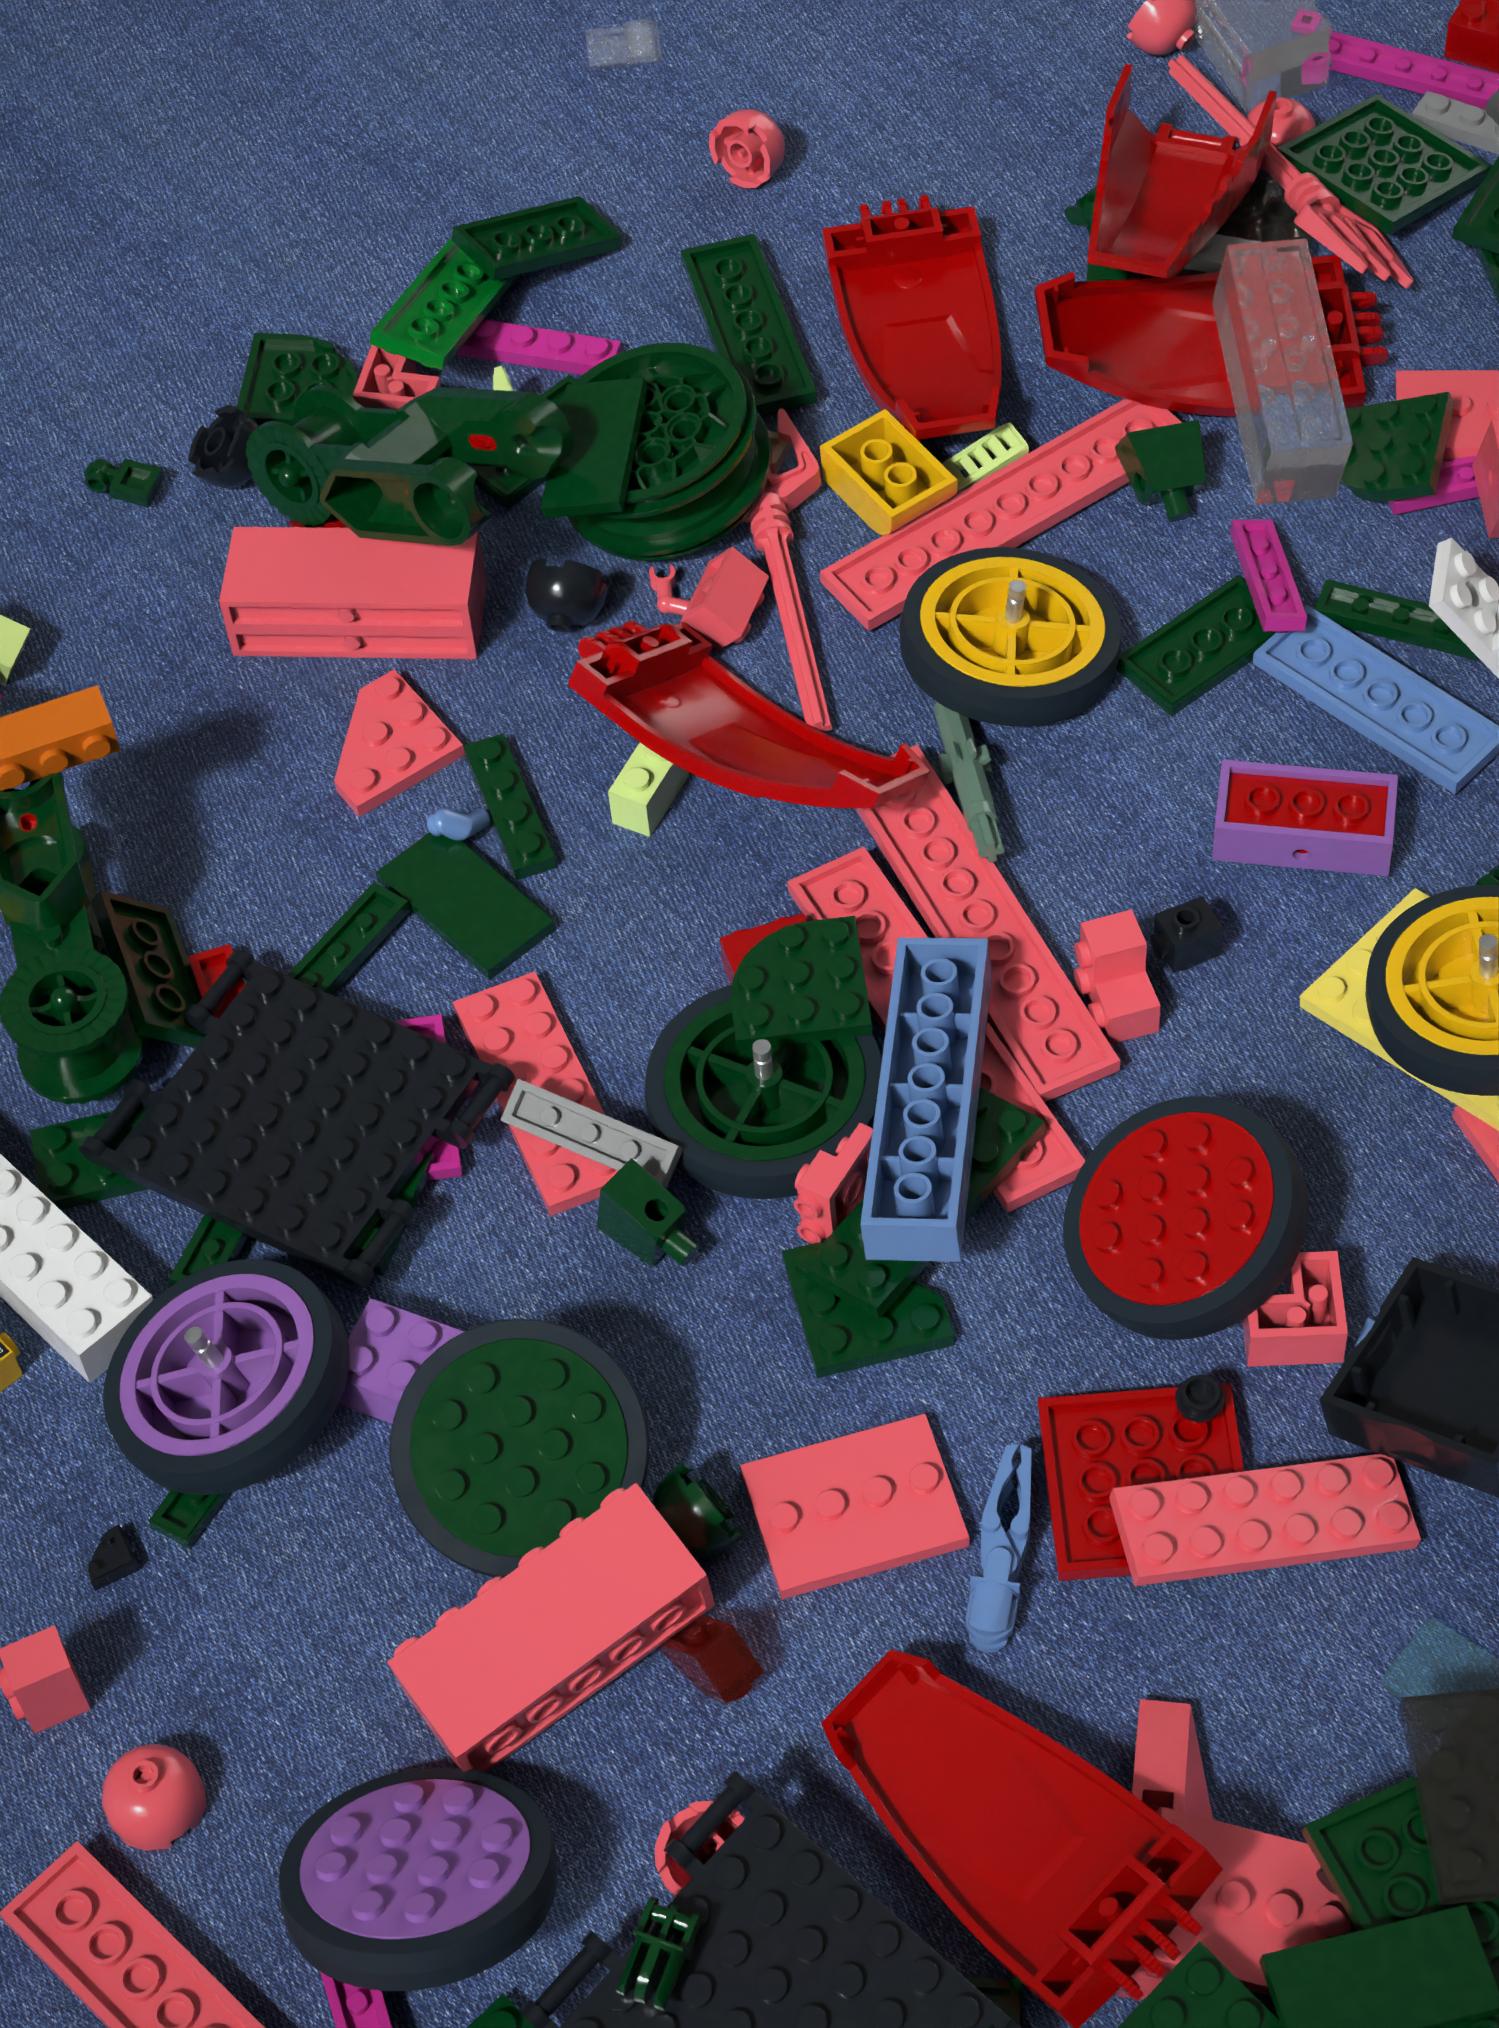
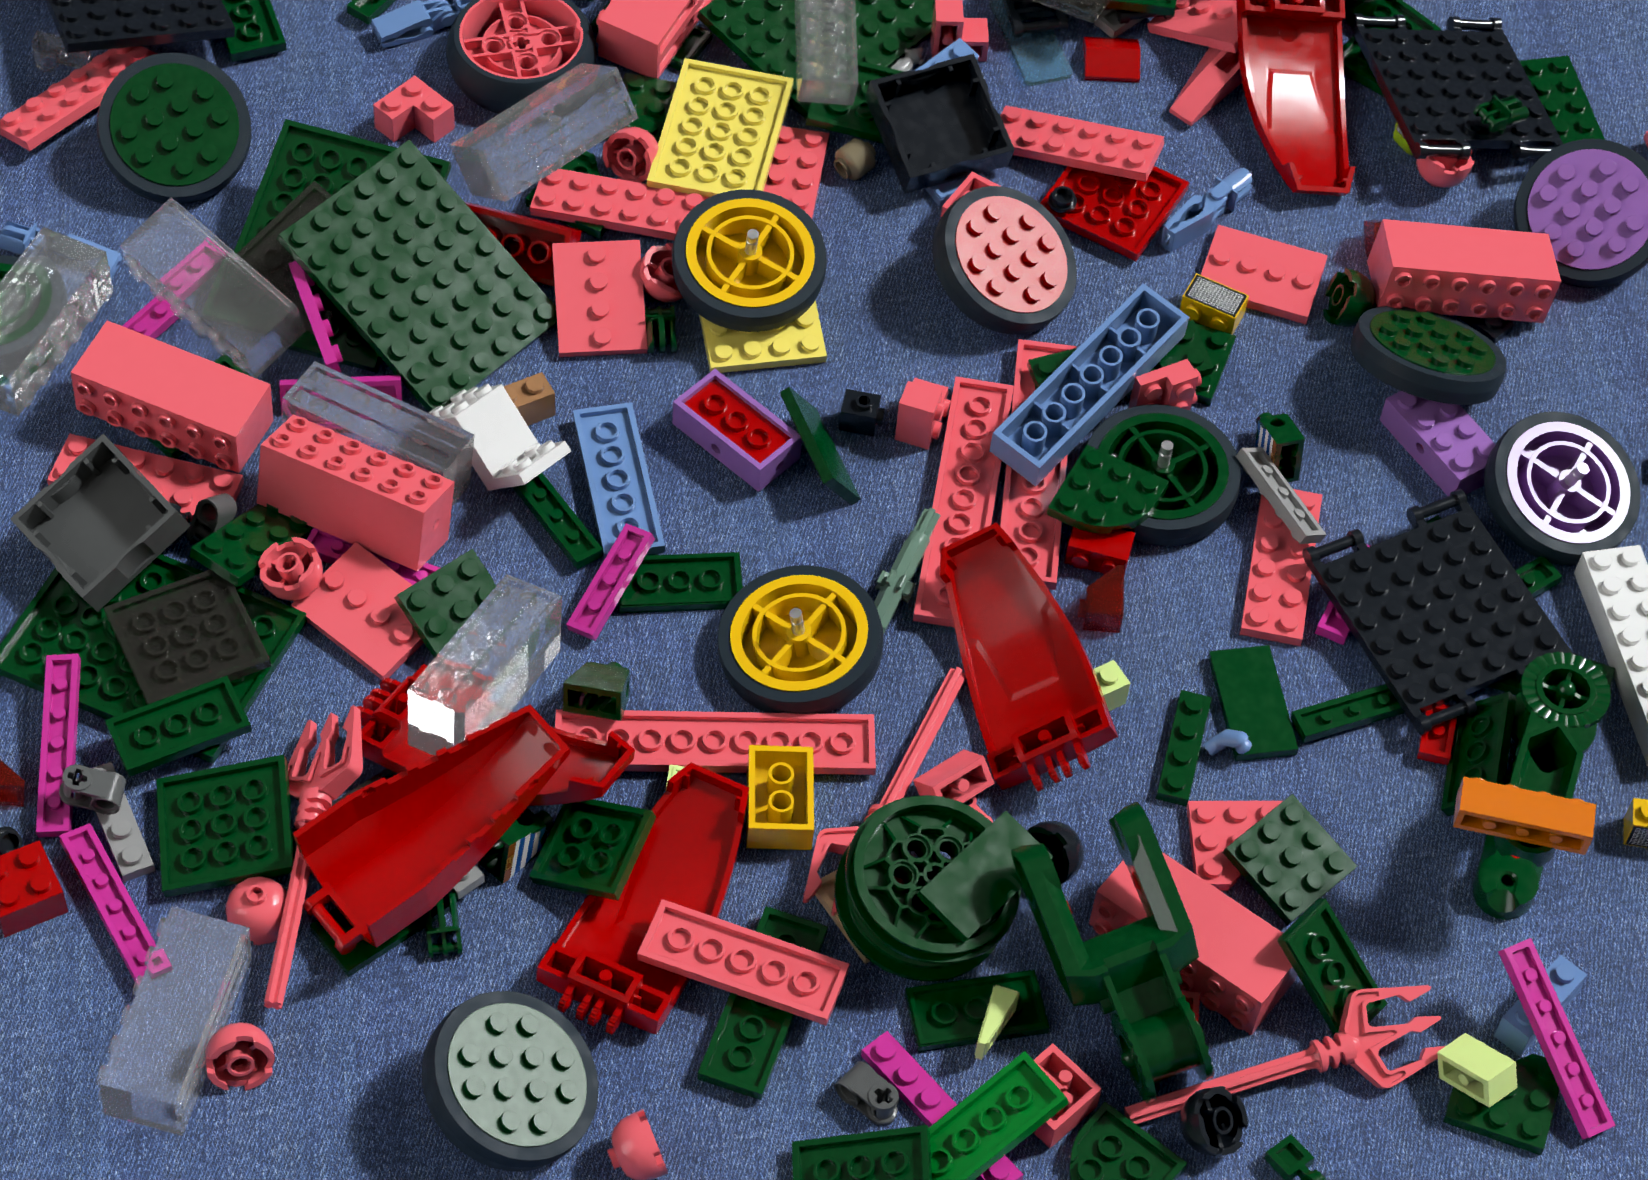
camera: 155 degrees left, 0 degrees up
(121, 606) = (1354, 1045): none -> coral piece
(183, 619) = (1327, 962): none -> dark green tile
(308, 745) = (1289, 859): none -> dark green plate
(586, 309) = (869, 1092): none -> dark grey piece
(713, 894) = (1104, 602): none -> clear red slope
(796, 316) = (743, 962): none -> coral plate
(877, 1389) = (1214, 304): none -> brick
(904, 103) = (510, 1081): none -> wheel
(1004, 328) = (593, 848): none -> dark green plate
(1191, 853) = (820, 446): none -> dark green tile
(1350, 1752) = (1111, 59): none -> red slope

